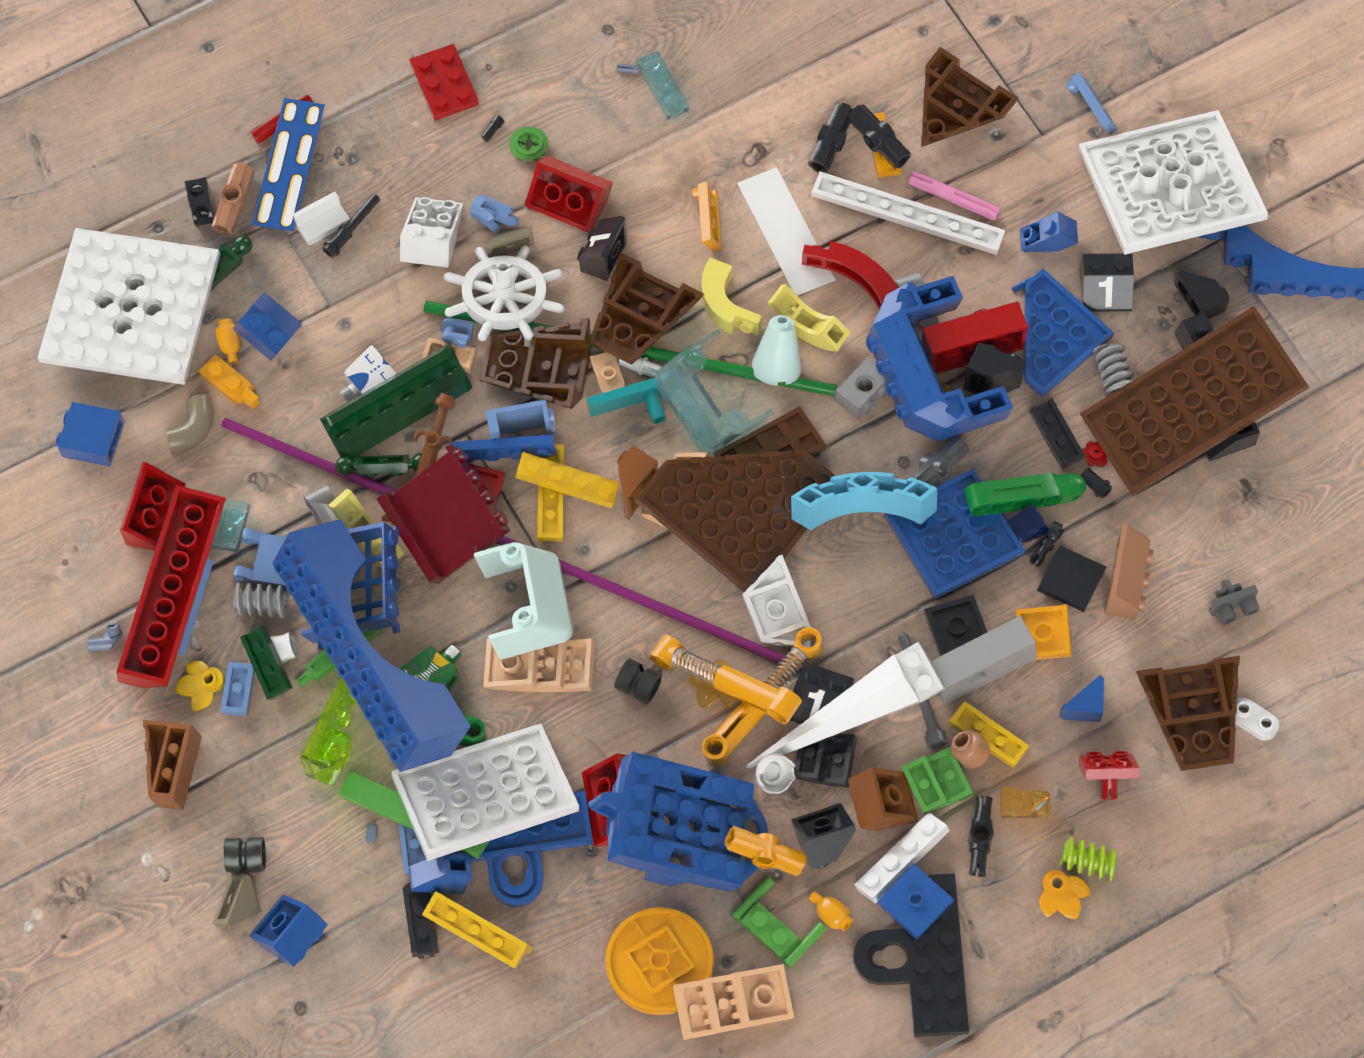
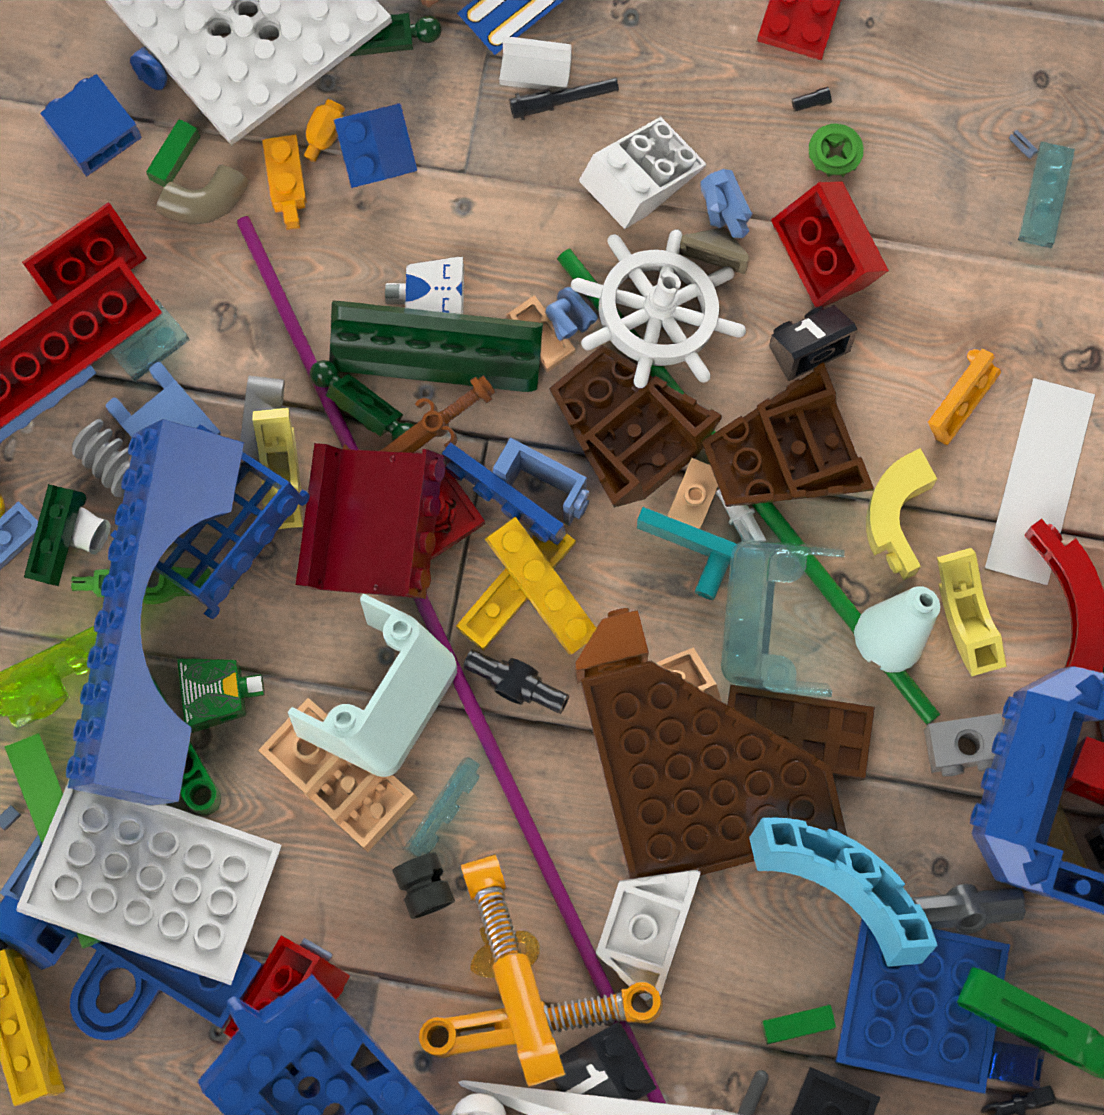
camera: 40 degrees right, 10 degrees up
(98, 386) = (149, 69): none -> blue piece
(151, 416) = (173, 153): none -> green piece
(595, 541) = (516, 681): none -> black pin
(613, 634) = (443, 808): none -> clear light blue plate
(899, 595) = (798, 1024): none -> green piece

